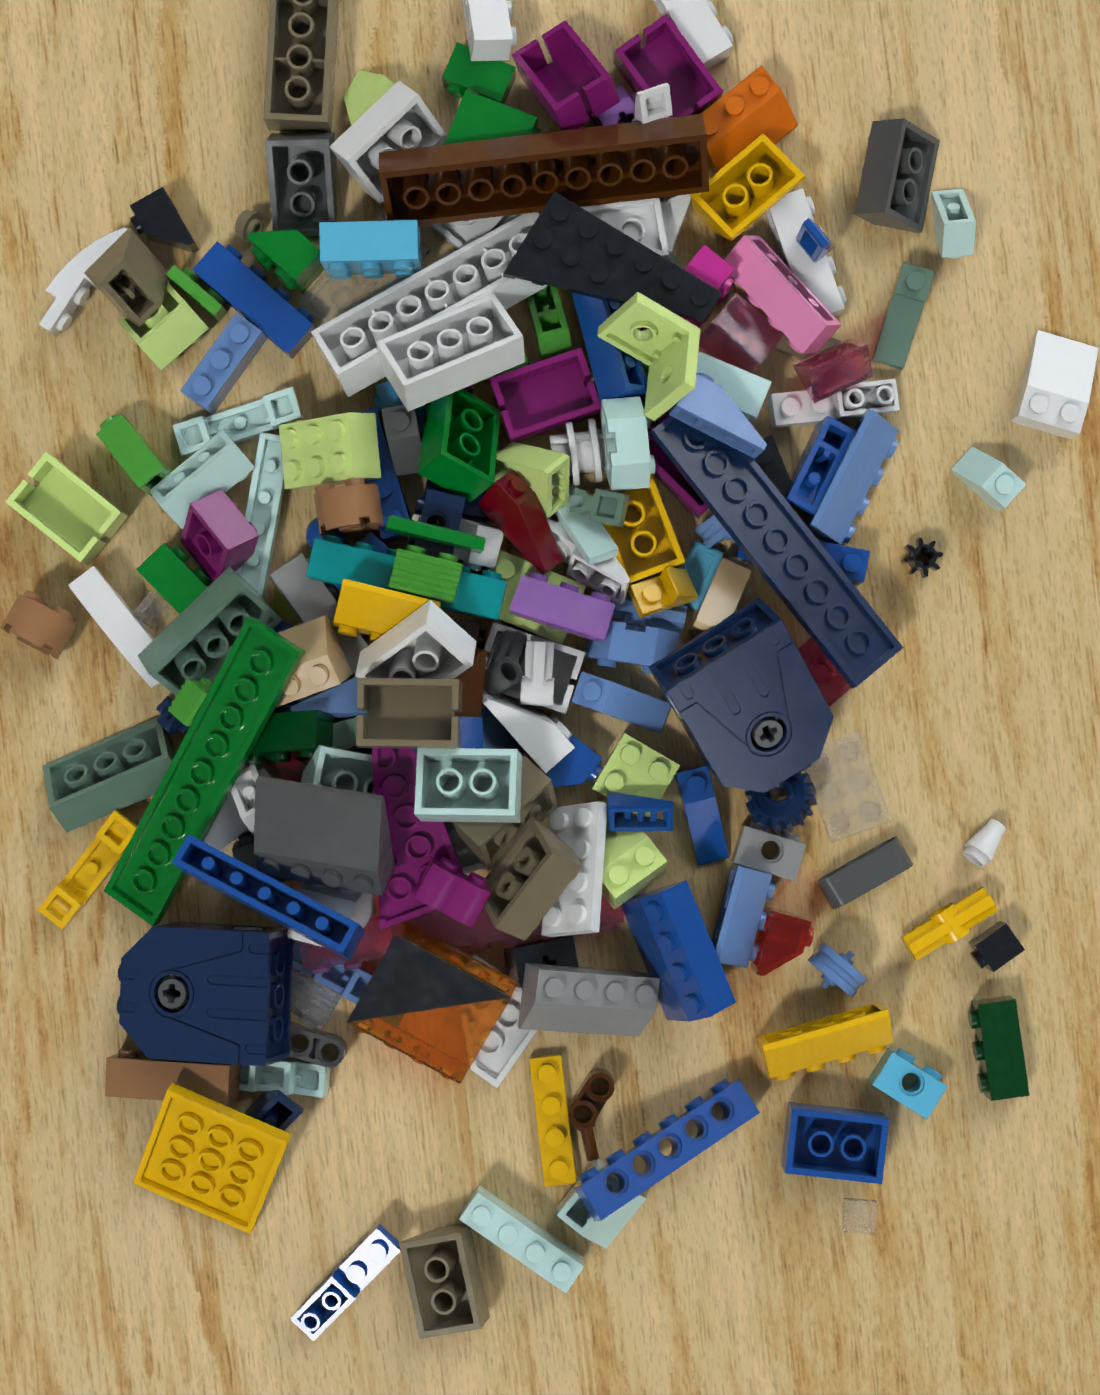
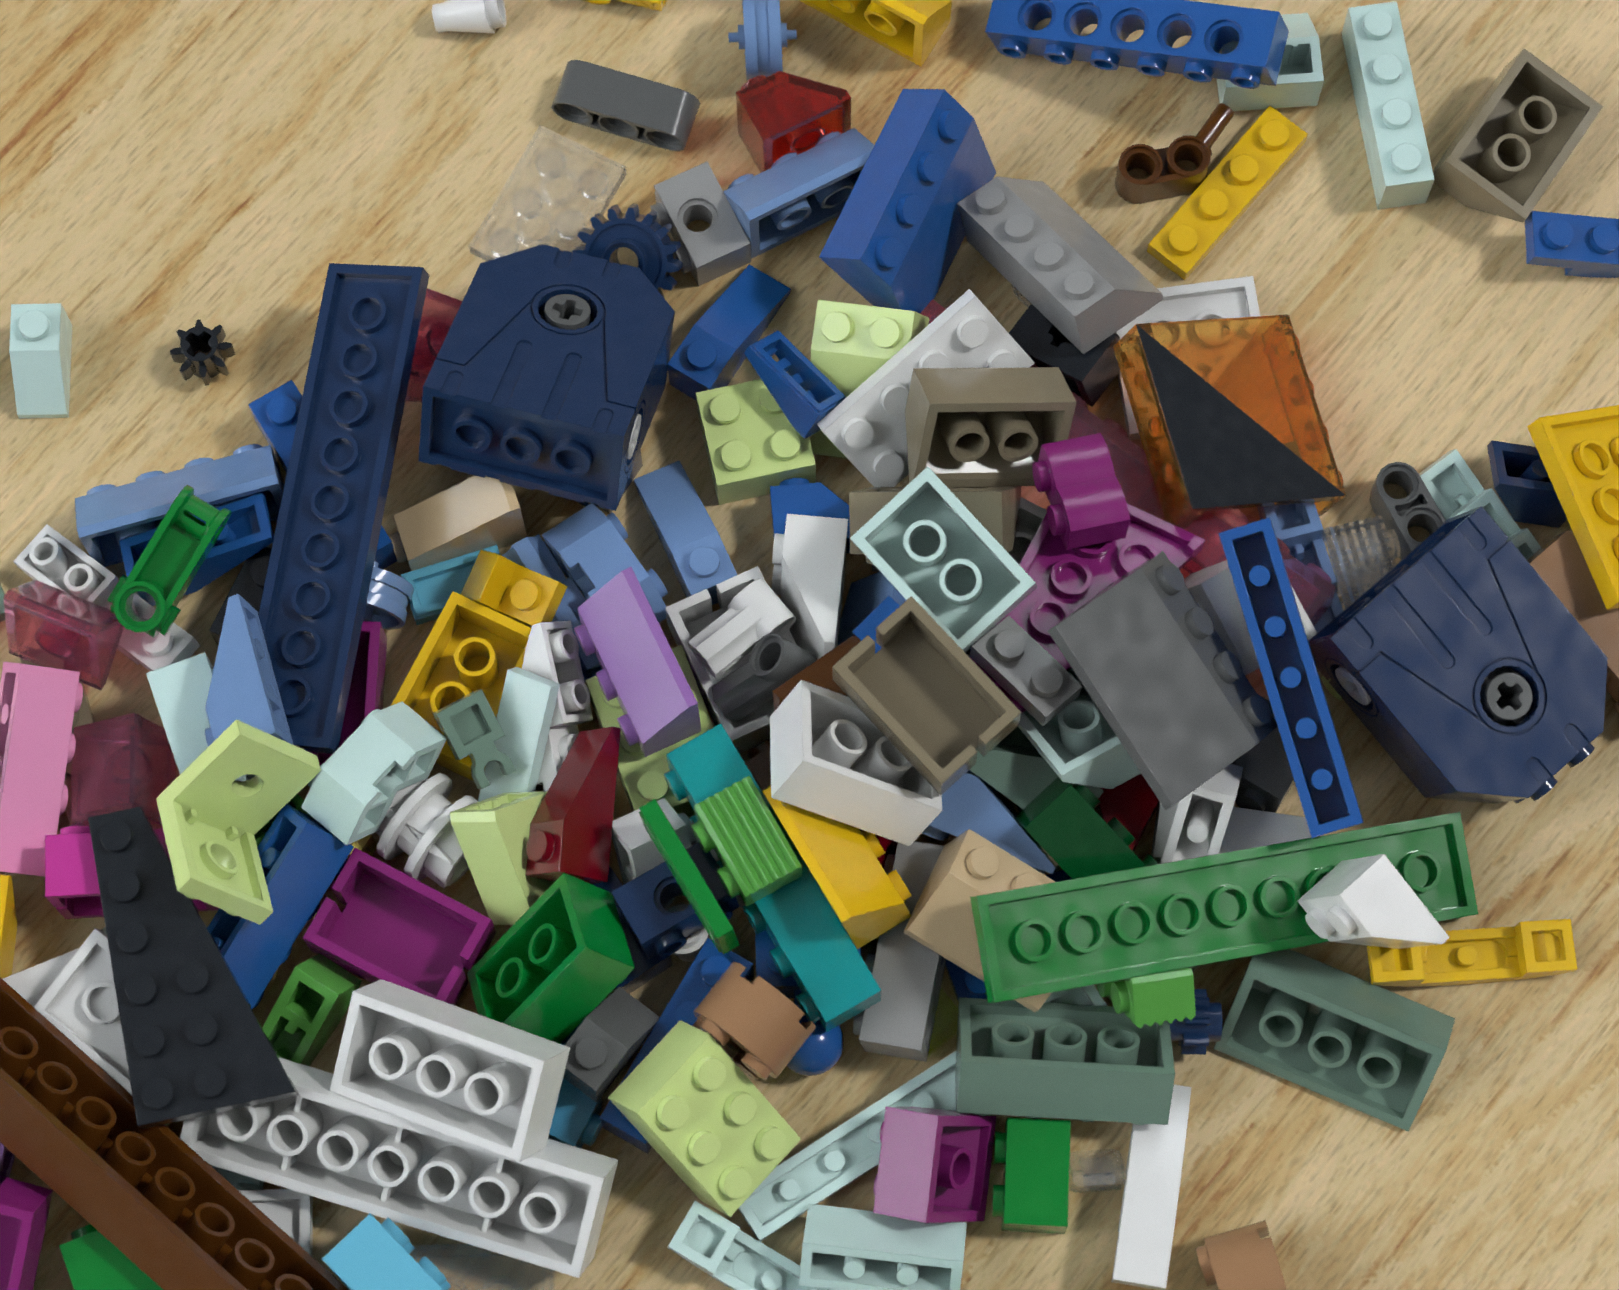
camera: 135 degrees left, 15 degrees down
(138, 831) = (1370, 906): none -> white slope
(385, 777) = (1025, 670): none -> light grey plate
(815, 436) = (169, 563): none -> green piece

